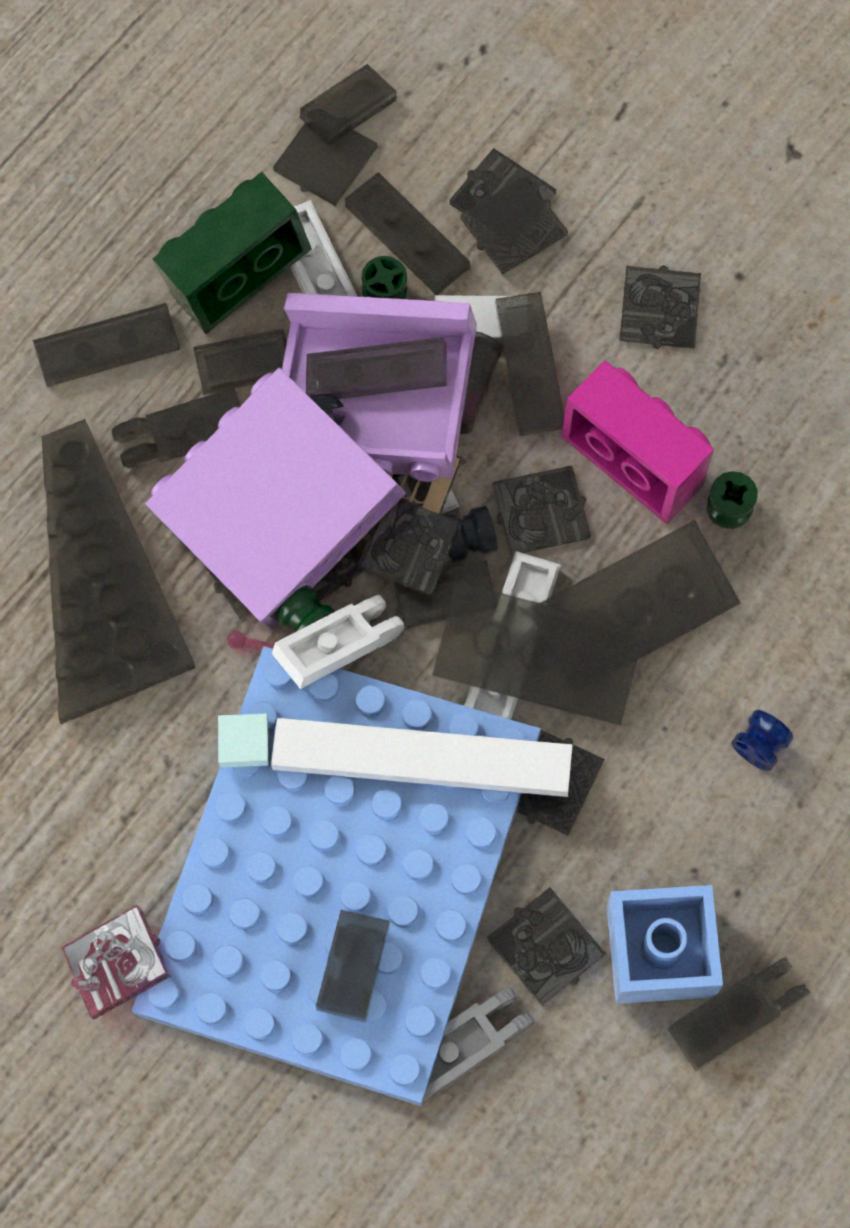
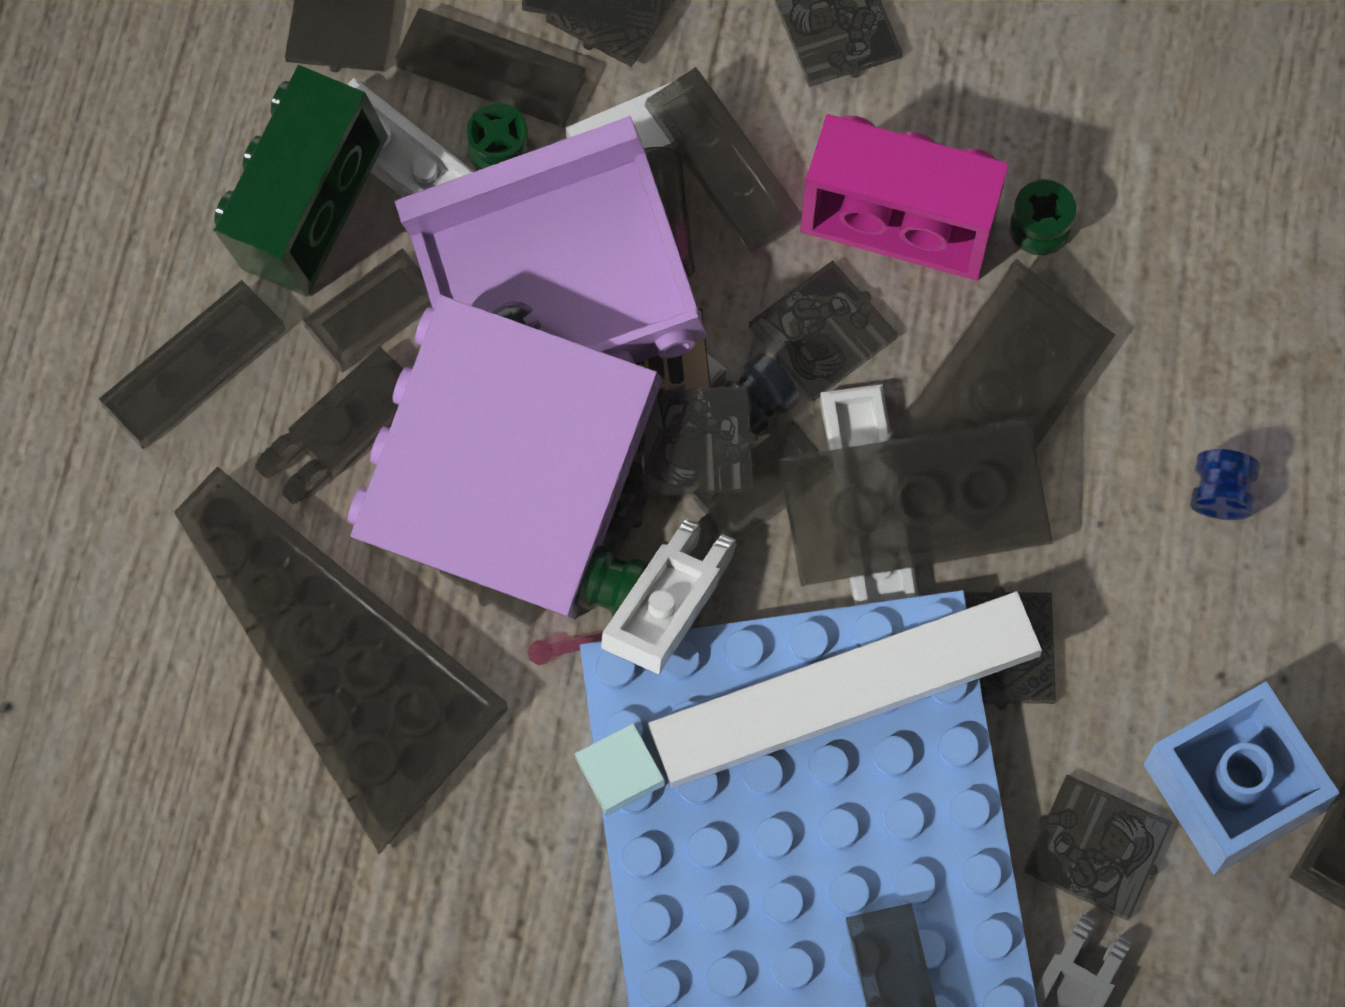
camera: 25 degrees left, 0 degrees up
(378, 369) = (552, 245): clear smoke tile -> none

